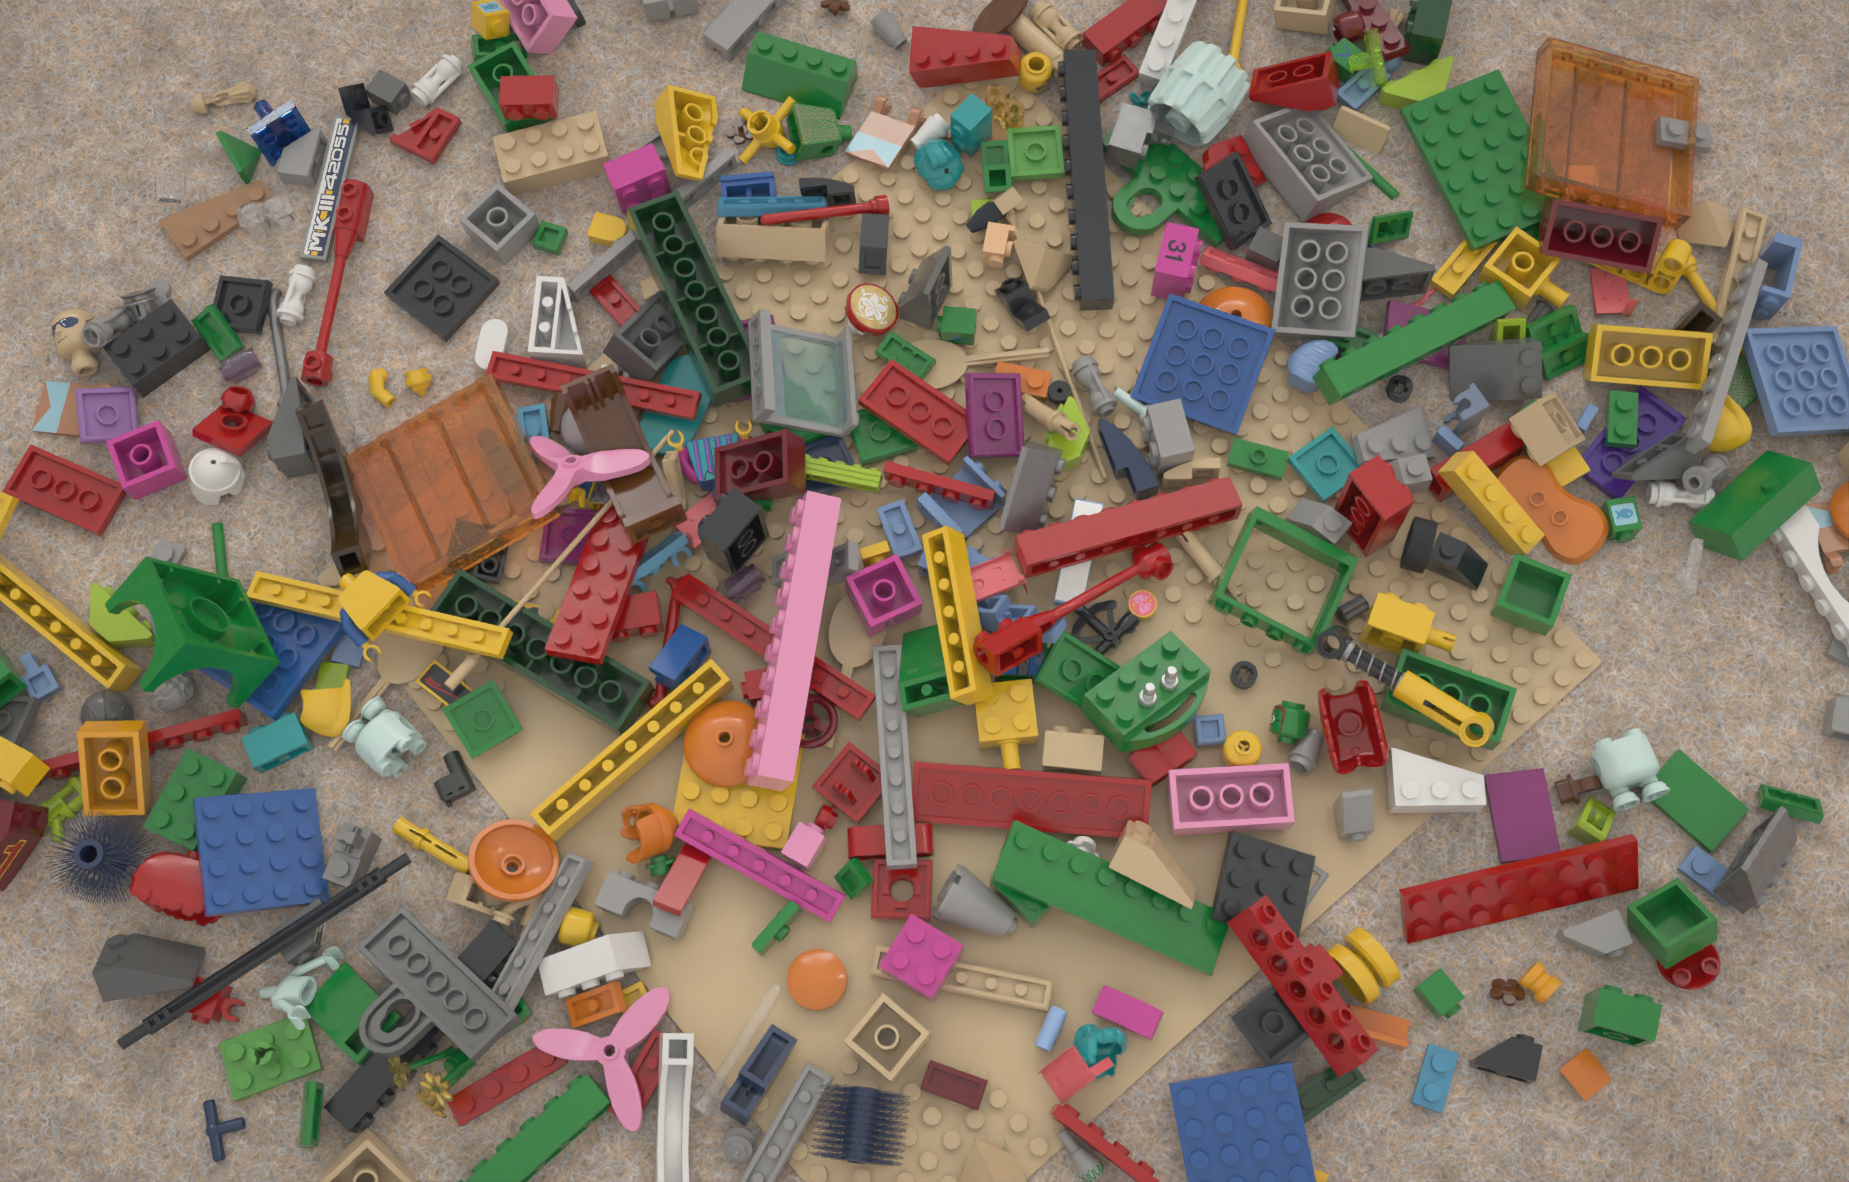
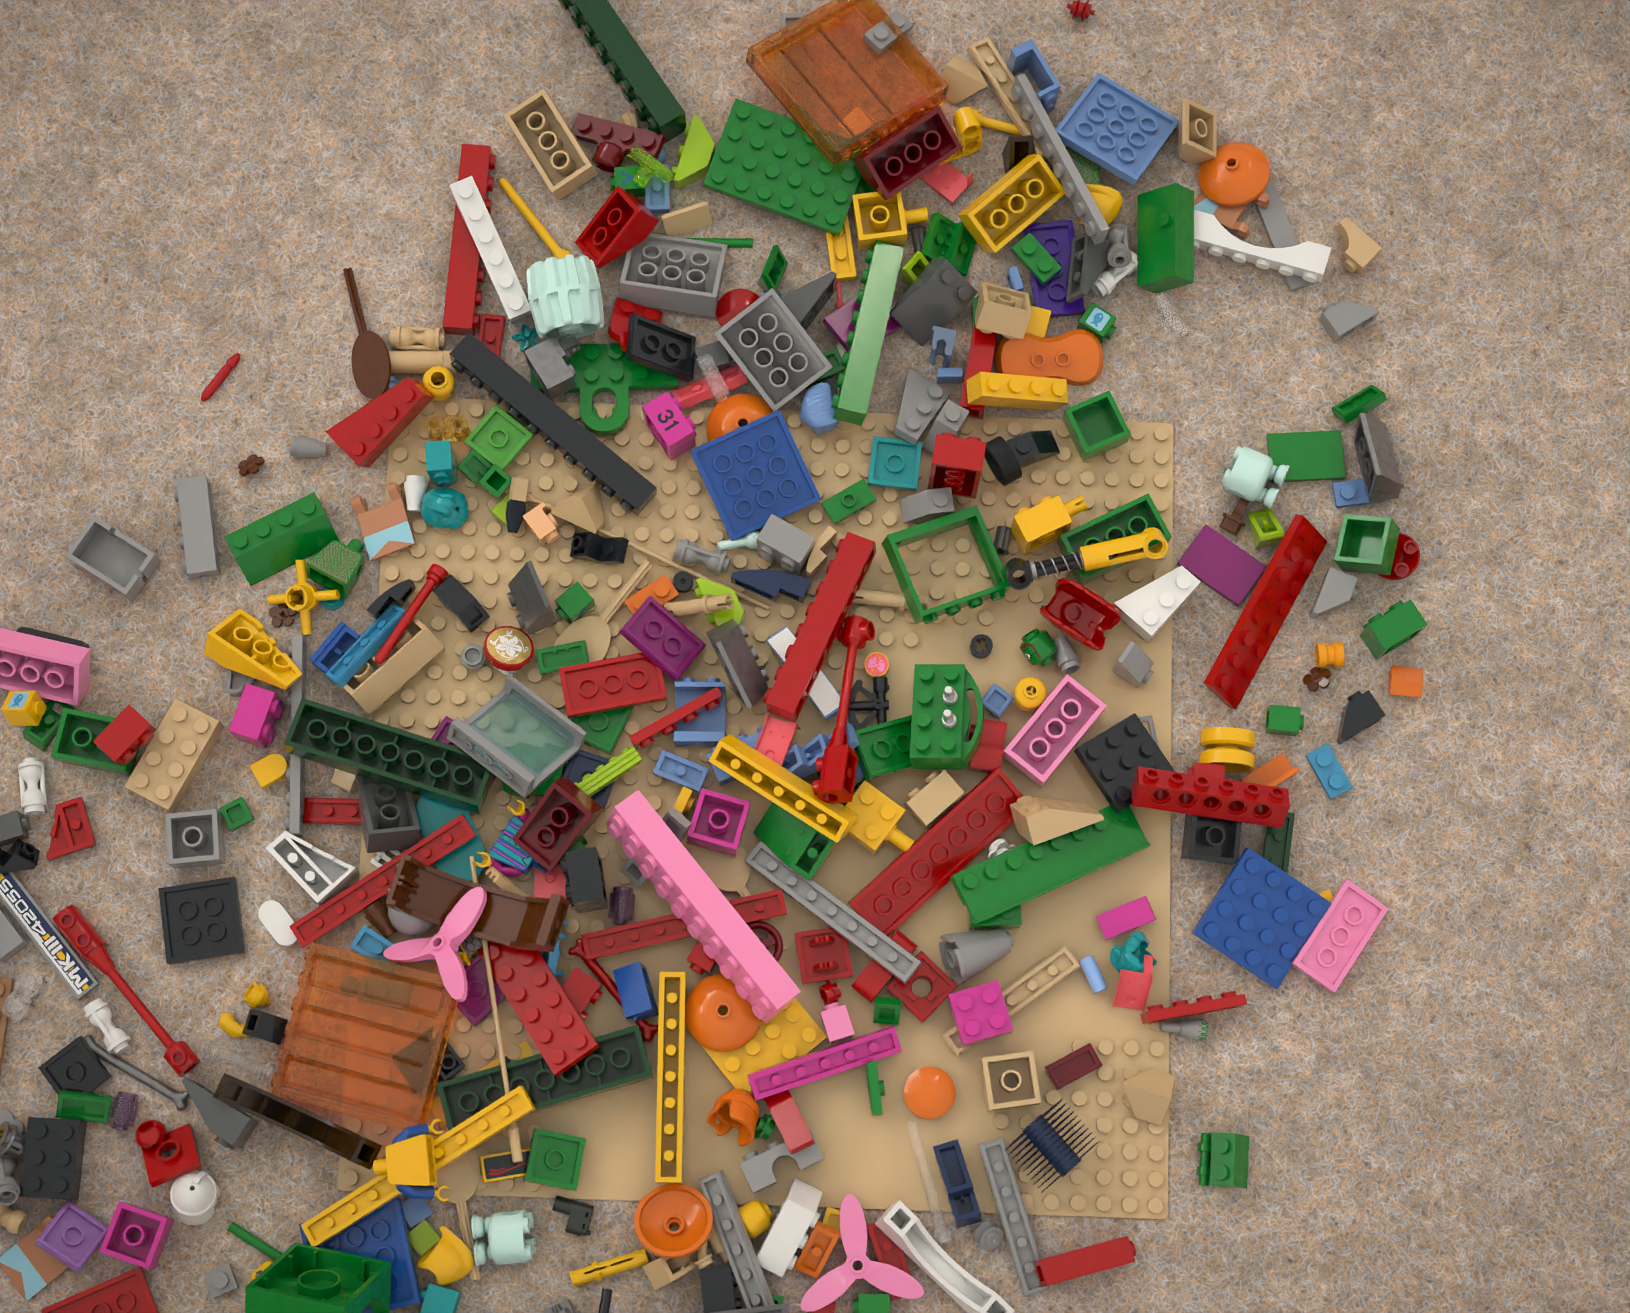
camera: 55 degrees left, 5 degrees up
(396, 404) = (265, 1026): none -> black brick
(838, 291) = (473, 657): none -> light grey plate
(1249, 259) = (712, 377): none -> clear piece
(1408, 387) = (889, 364): black bush -> none

